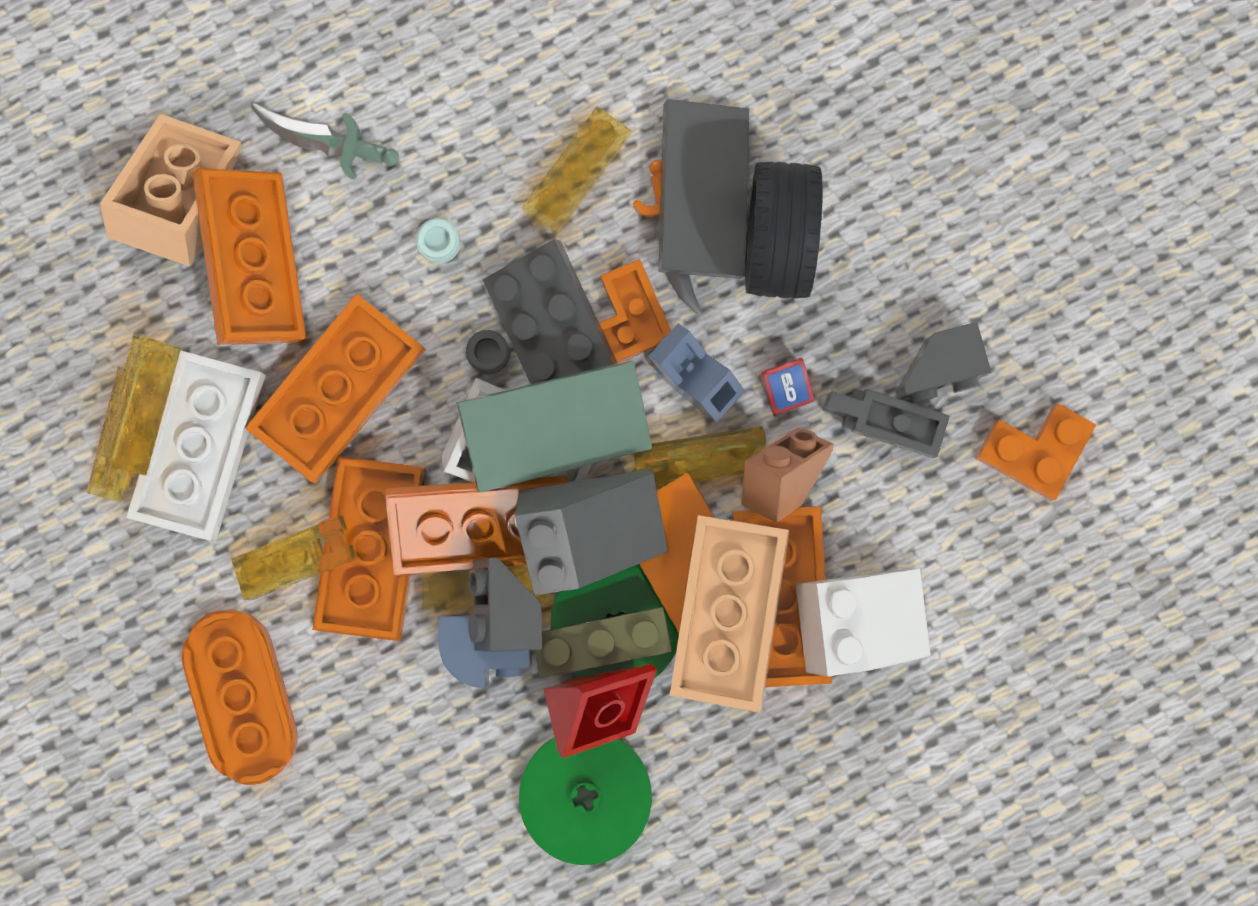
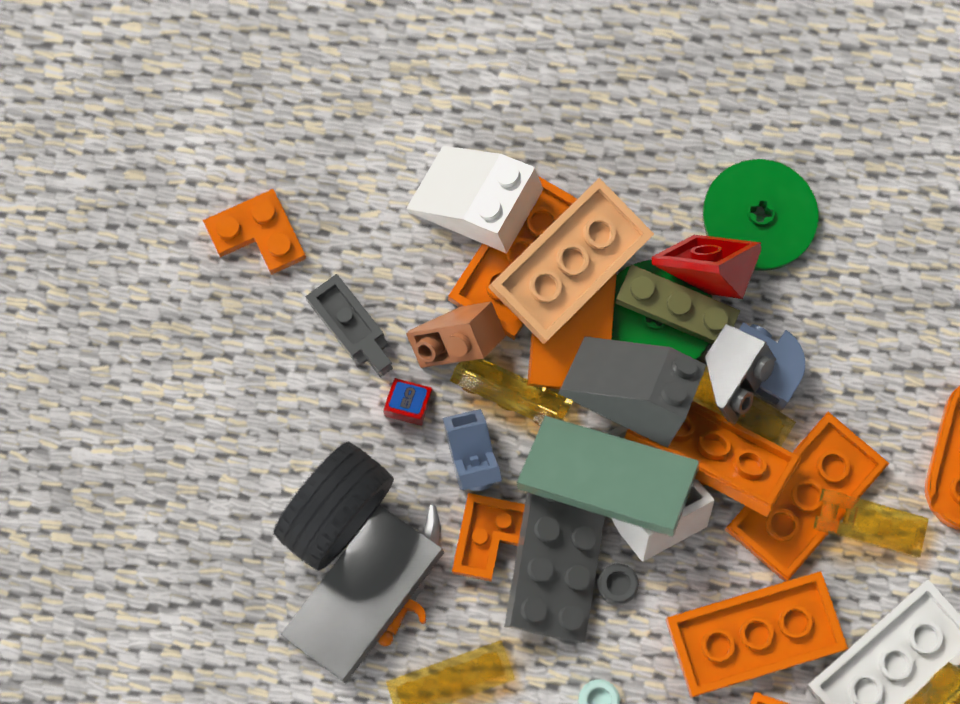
camera: 145 degrees left, 10 degrees down
(944, 360) = (280, 338): dark grey slope -> none

